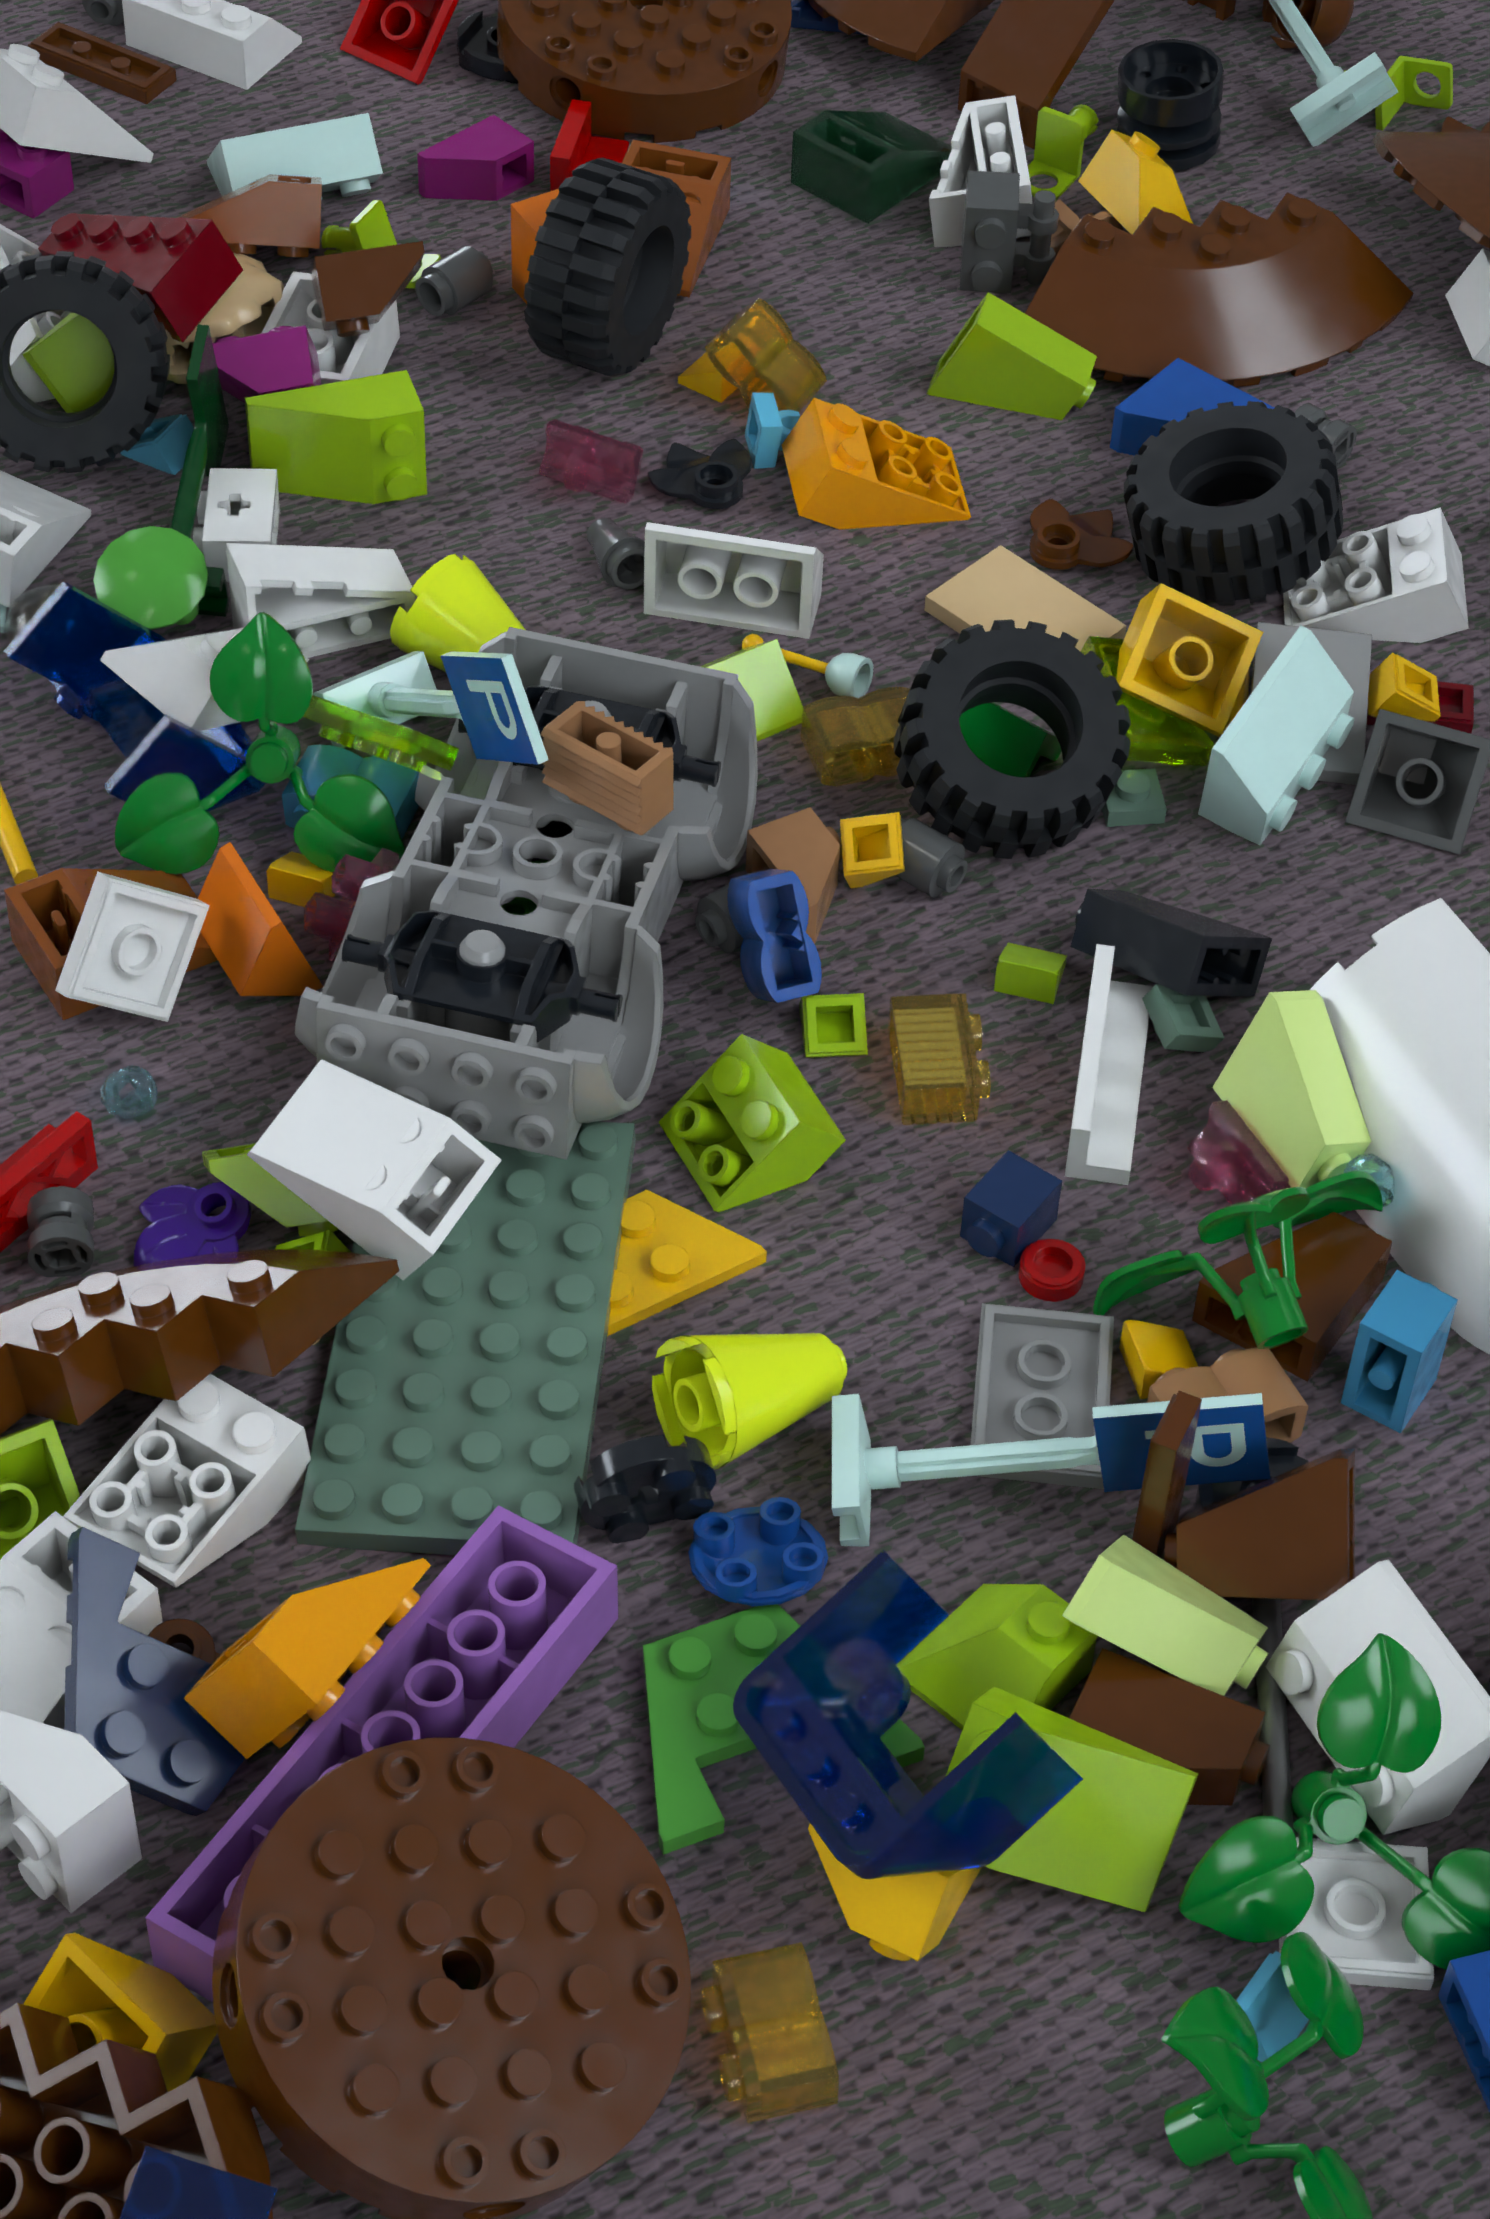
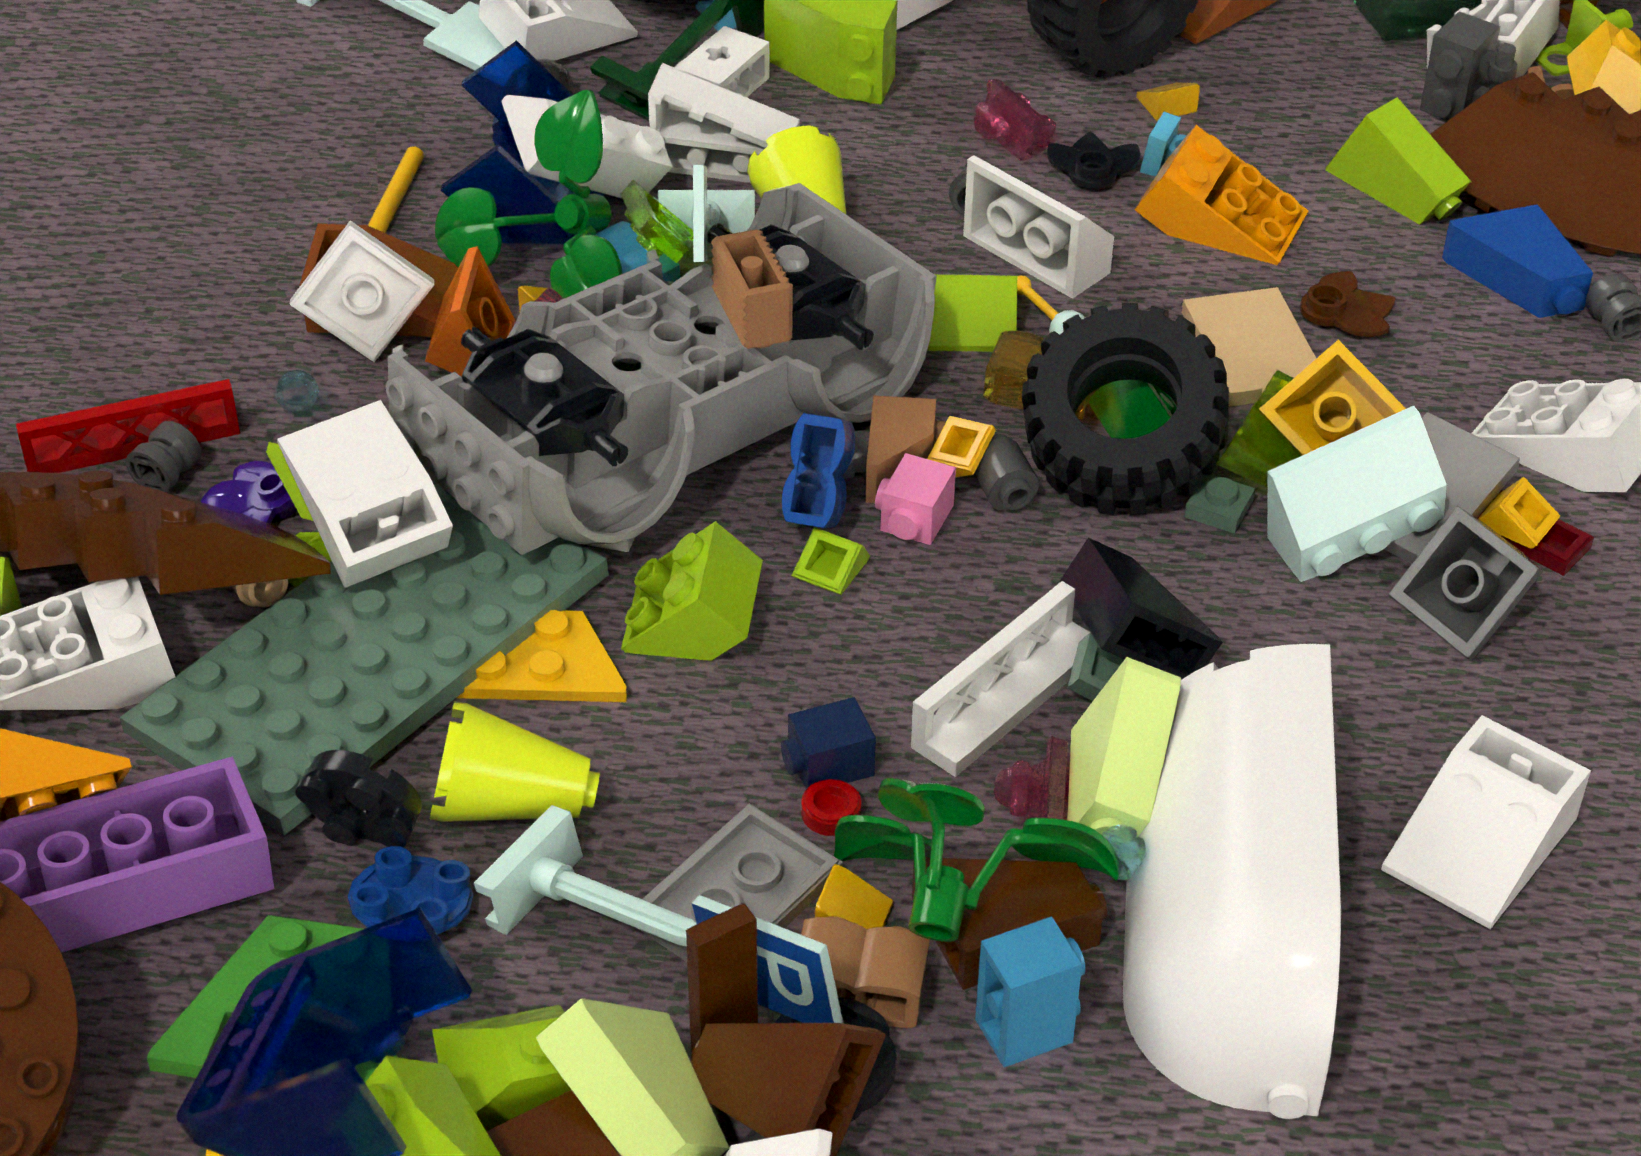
camera: 35 degrees right, 5 degrees down
(152, 577) = (617, 73): bright green dish -> none
(761, 357) = (1196, 90): clear yellow brick -> none
(866, 921) = (916, 499): none -> bright pink brick
(936, 1059) = (877, 615): clear yellow brick -> none
(1029, 972) = (1013, 586): lime slope -> none
(1243, 546) = (1482, 318): black tyre -> none

